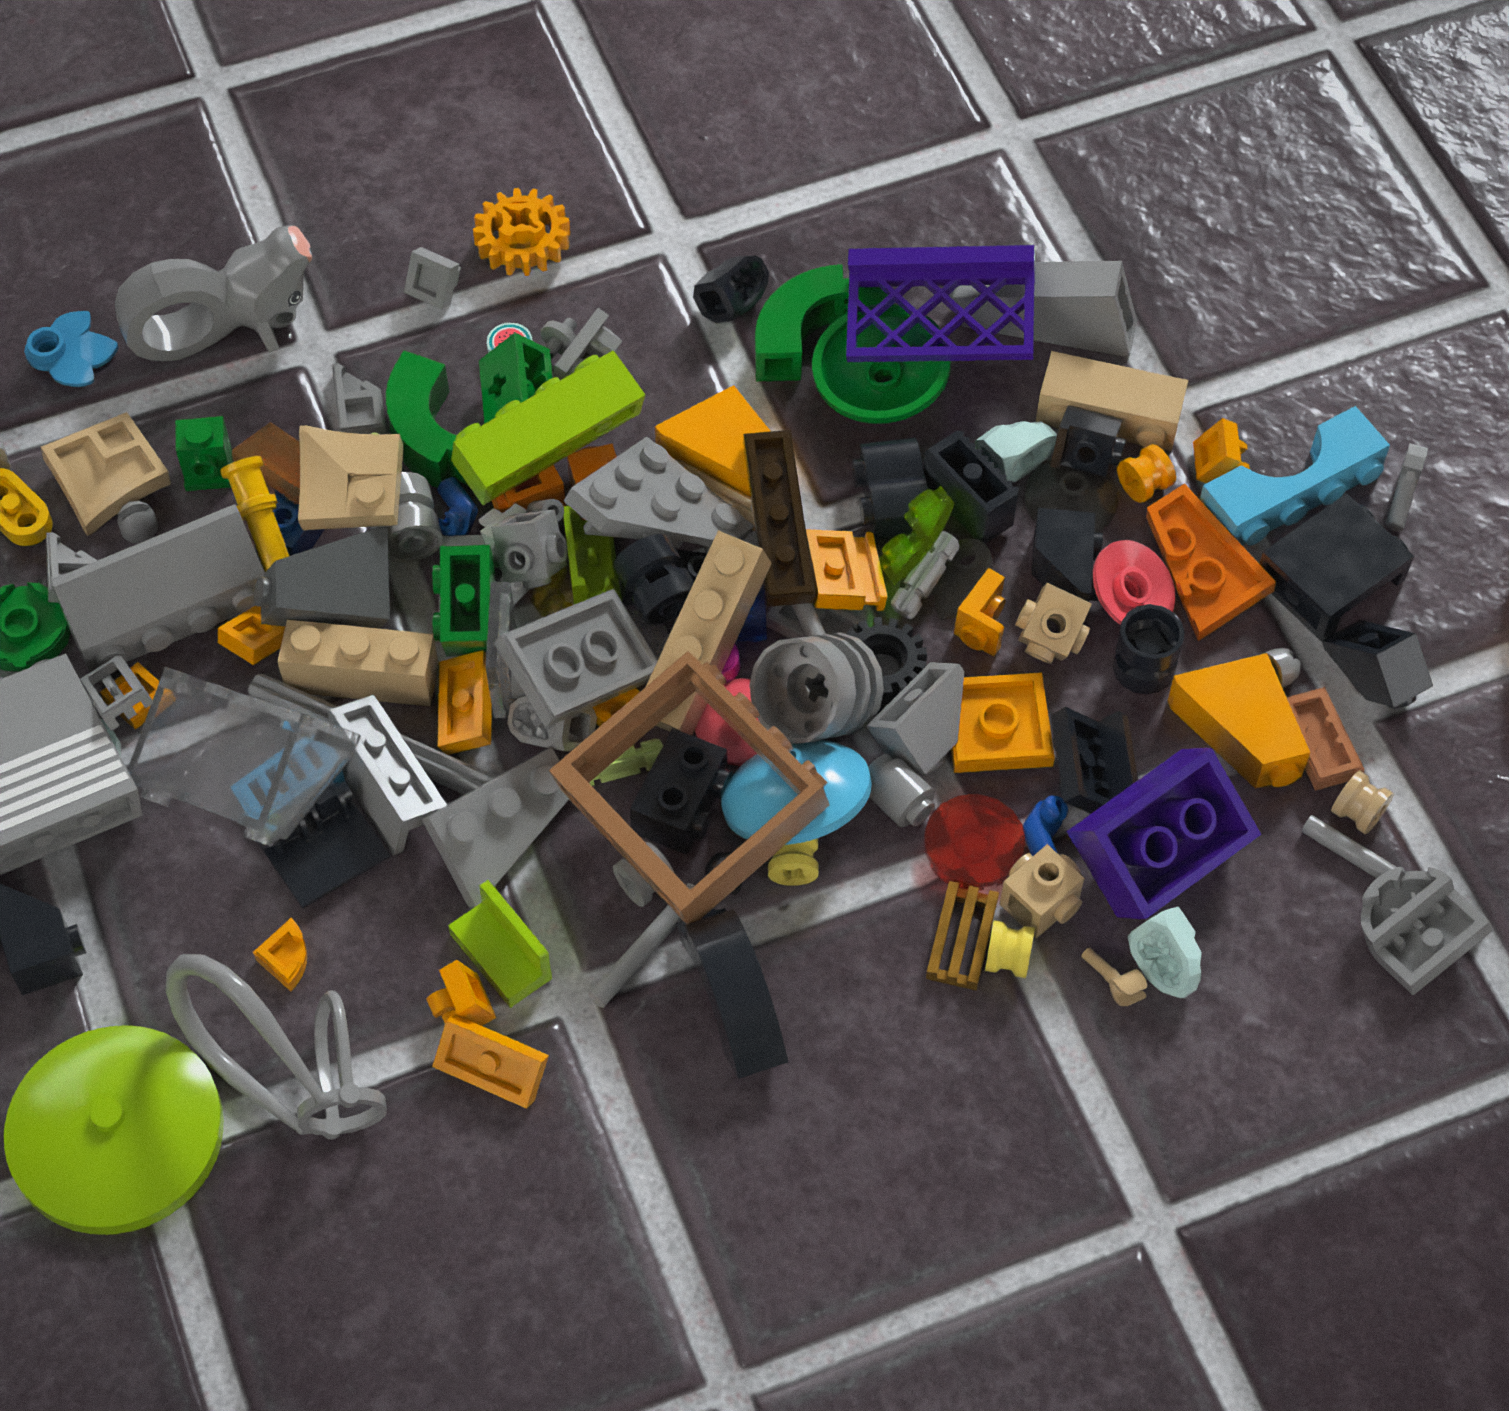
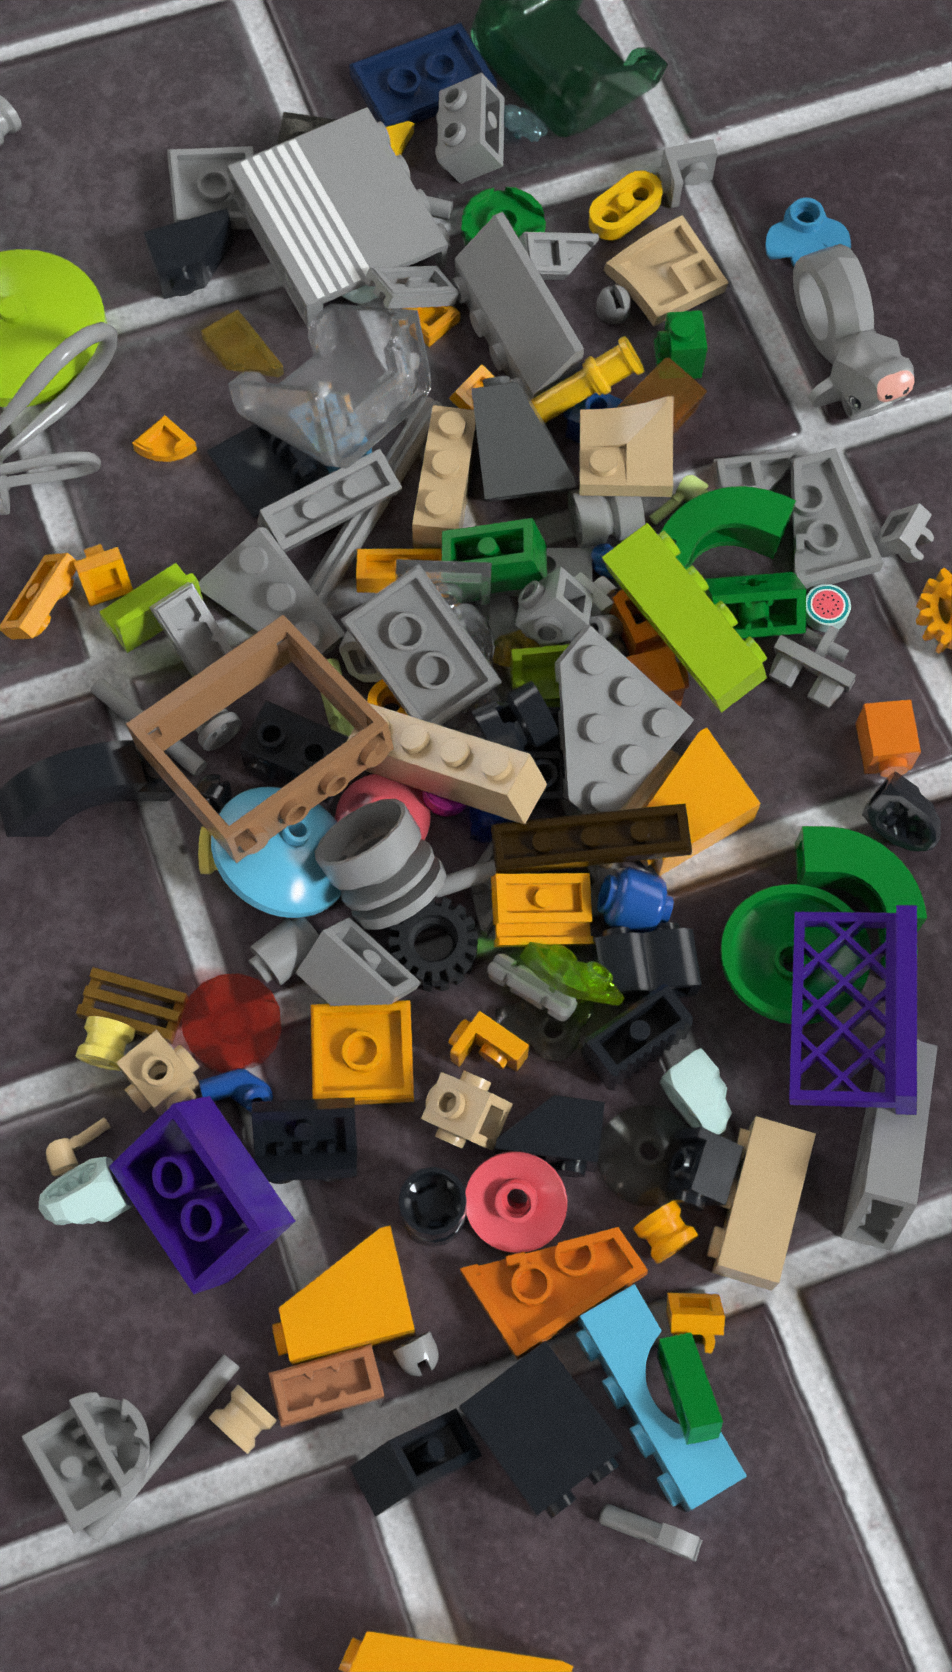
camera: 90 degrees right, 10 degrees up
(161, 883) = (240, 346): none -> clear yellow tile
(436, 330) = (828, 523): none -> light grey wing
(546, 889) = (191, 628): none -> light grey plate
(655, 296) = (888, 737): none -> orange brick
(831, 495) = (634, 900): none -> blue head
(1289, 443) = (689, 1388): none -> green piece

